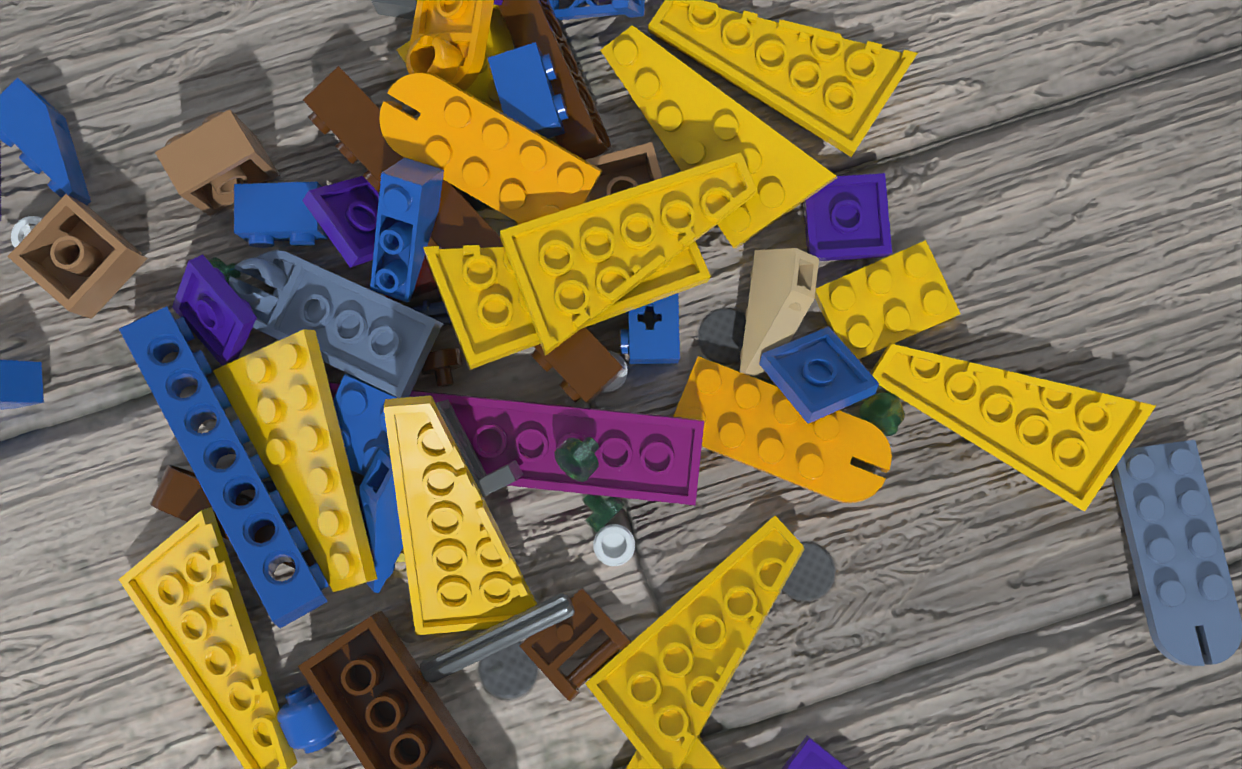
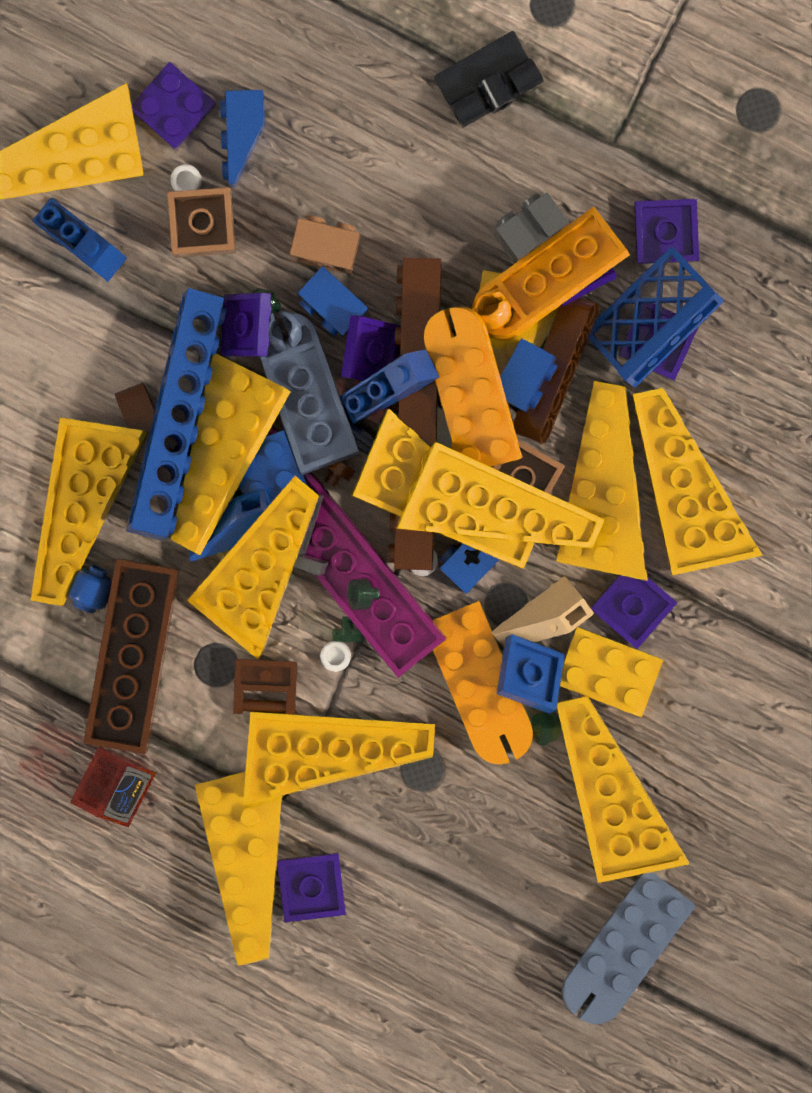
camera: 45 degrees right, 5 degrees up
(497, 638) = (227, 644): dark grey axle -> none

